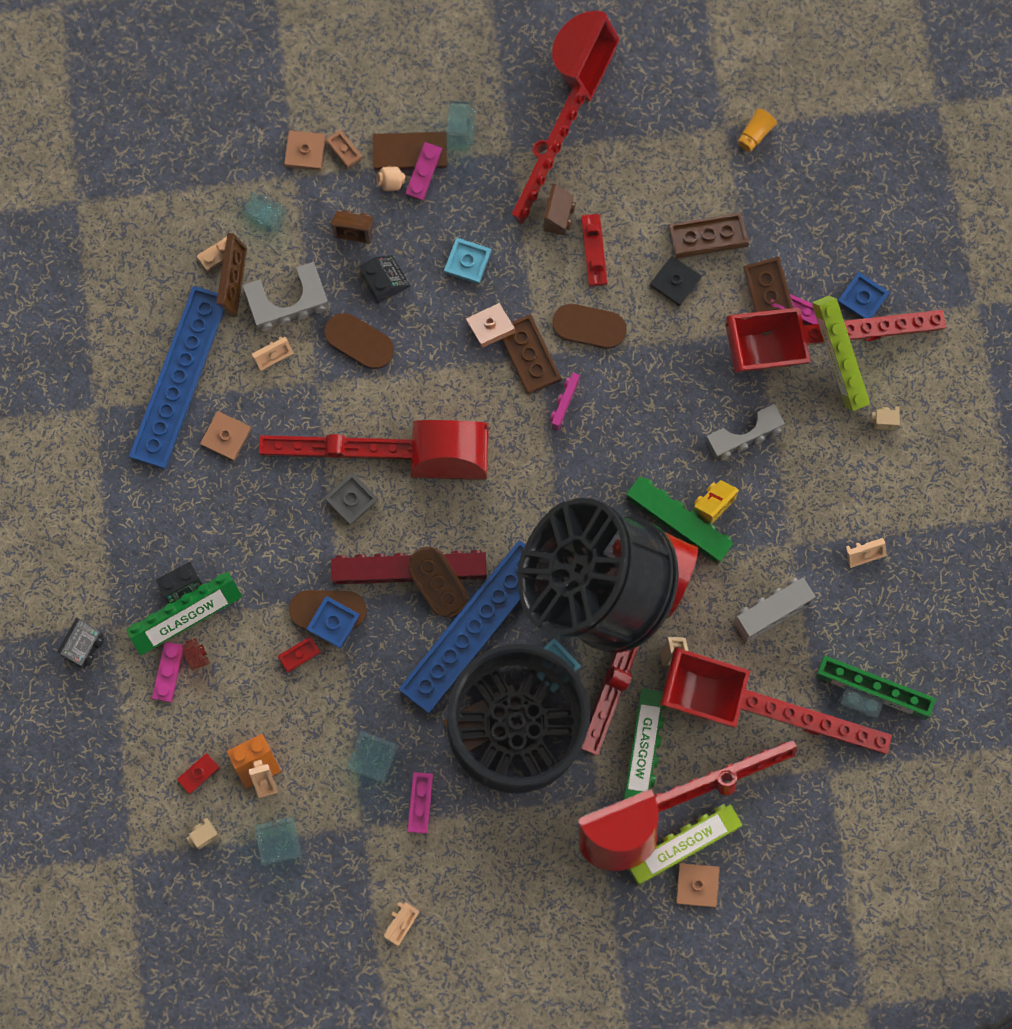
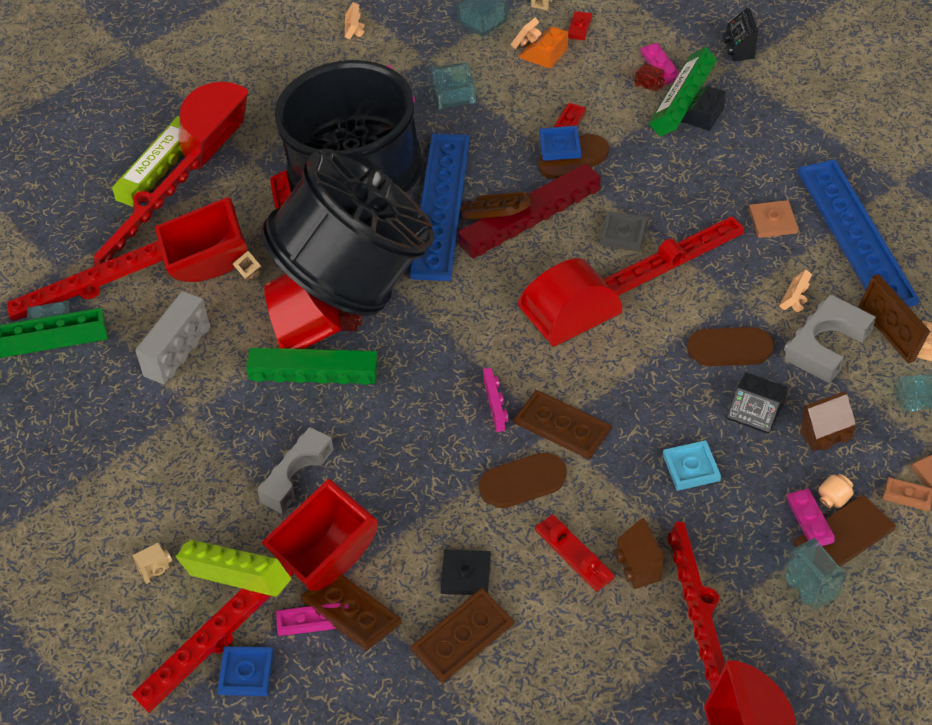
camera: 150 degrees right, 25 degrees down
(490, 325) = (619, 421): plate -> none
(645, 743) = (225, 184): brick -> none
(697, 885) = (128, 148): nougat plate -> none
(716, 501) = (285, 392): yellow slope -> none
(866, 553) = (103, 442): light nougat plate -> none

